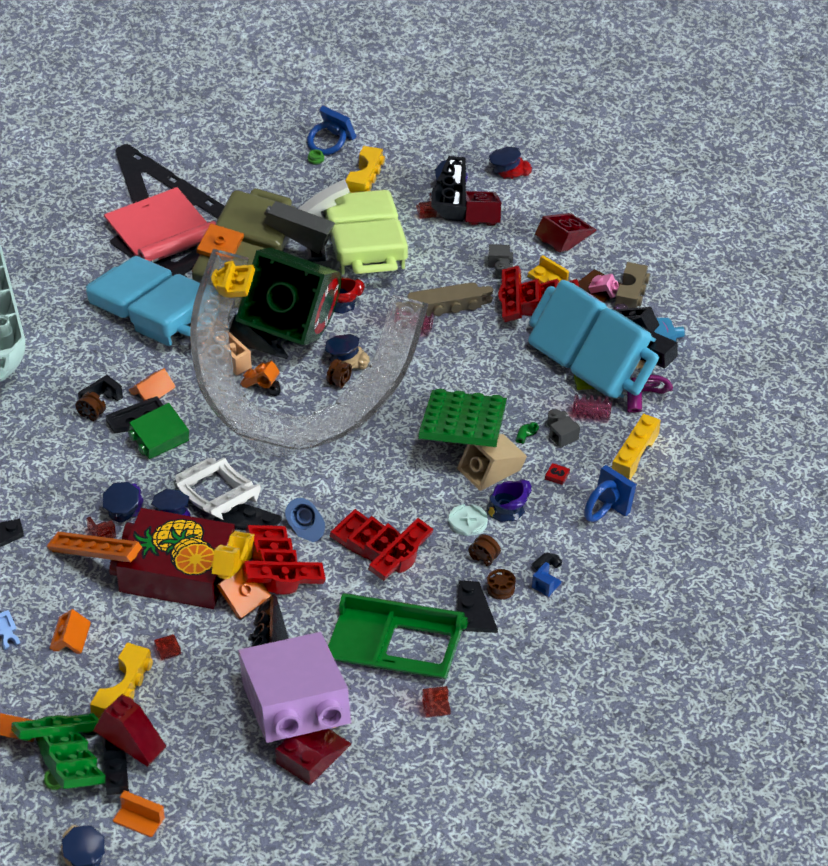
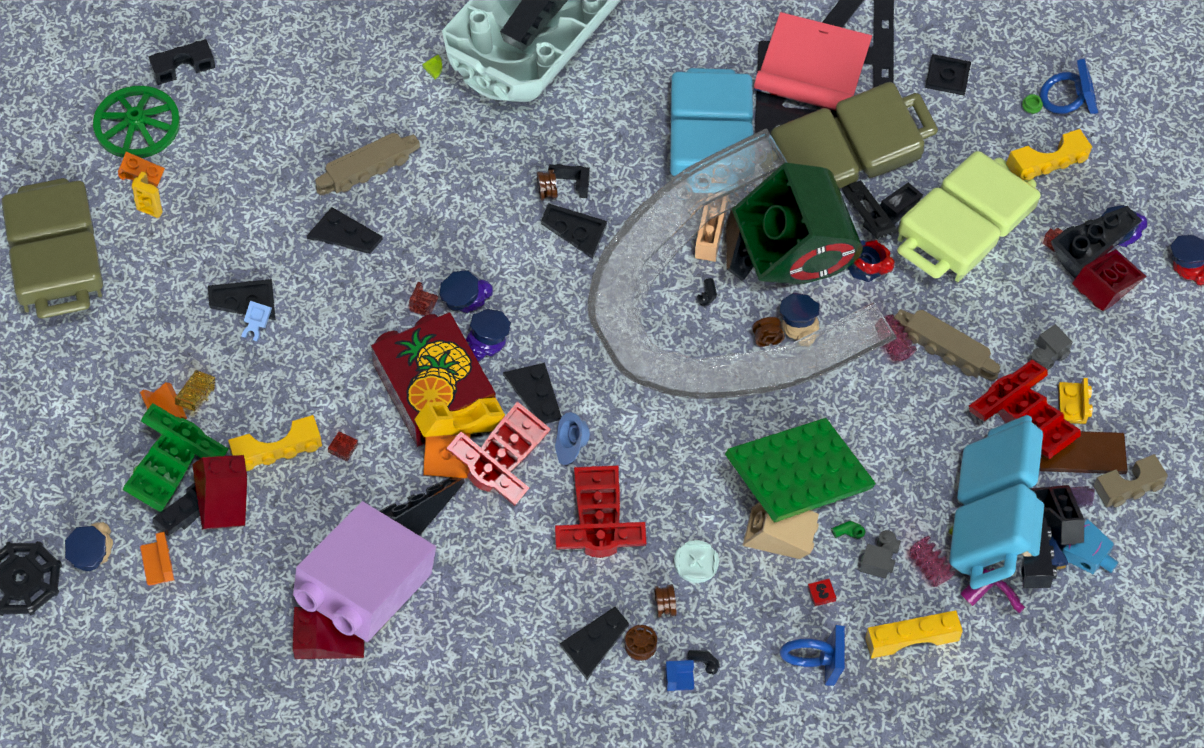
camera: 50 degrees right, 15 degrees up
(23, 699) = (195, 390): none -> clear yellow plate
(70, 632) = (297, 368): orange panel -> none
(94, 546) = (382, 313): orange plate -> none
(154, 385) = (616, 208): orange panel -> none
(158, 431) = (564, 254): green brick -> none
(220, 239) = (819, 123): orange plate -> none
(233, 280) = (743, 172): yellow slope -> none
(242, 488) = (535, 366): white wedge -> none
(247, 177) = (948, 74): none -> black tile
(263, 375) = (704, 277): orange plate -> none
(299, 225) = (898, 164): dark grey slope -> none
(325, 198) = (963, 155): white slope -> none
(368, 627) = (491, 579): green piece -> none
(436, 701) = (459, 689): clear red panel -> none
(509, 500) = (744, 577): piece -> none
(563, 231) = (1149, 370): dark red slope -> none
(604, 283) = (1104, 457): bright pink bracket -> none

